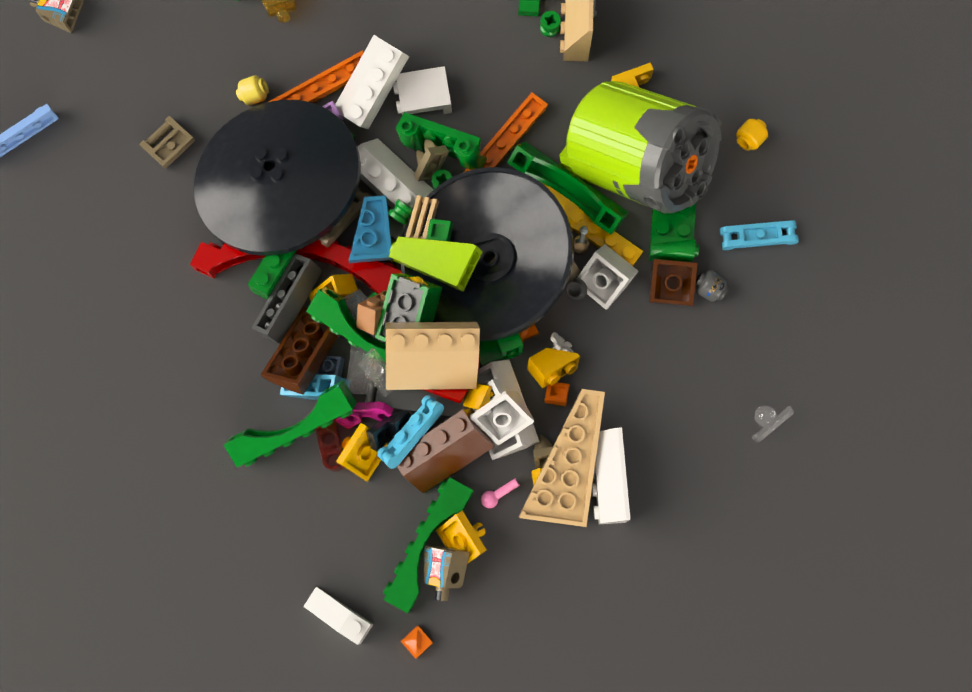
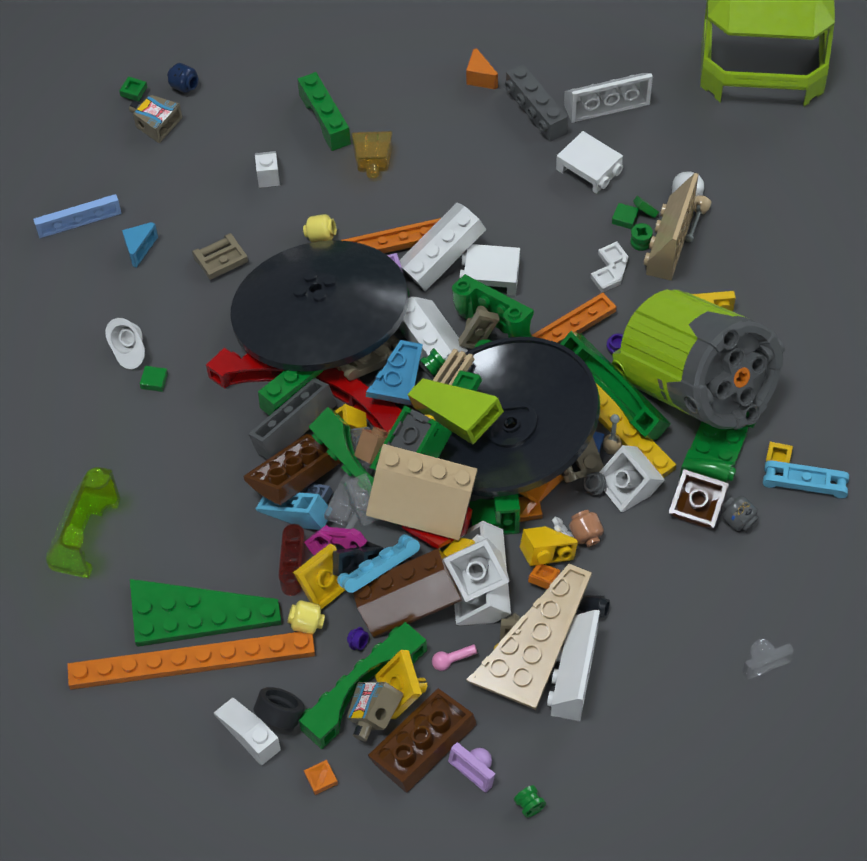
camera: 15 degrees right, 20 degrees down
(85, 147) = (139, 241): none -> dark azure slope
(107, 257) = (126, 342): none -> white piece
(117, 486) = (91, 496): none -> clear neon green windscreen
(145, 286) = (153, 378): none -> green tile
(182, 36) = (267, 169): none -> white slope
(245, 516) = (181, 612): none -> green wing
(252, 443) = (304, 516): green arch -> none
(266, 561) = (190, 660): none -> orange plate
(358, 493) = (305, 617): none -> light yellow head
(359, 605) = (278, 707): none -> black tyre
(410, 500) = (358, 639): none -> dark purple plate
(495, 581) = (422, 739): none -> reddish brown slope
(533, 54) = (612, 274): none -> white tile
(547, 594) = (473, 765): none -> lavender tile
(557, 141) = (614, 342): none -> dark purple plate
(581, 337) = (586, 528): none -> nougat head
(605, 615) = (530, 801): none -> green wheel
(612, 411) = (595, 602): none -> black cone
(728, 215) = (779, 452): none -> yellow slope
(752, 134) = (824, 381): yellow head -> none

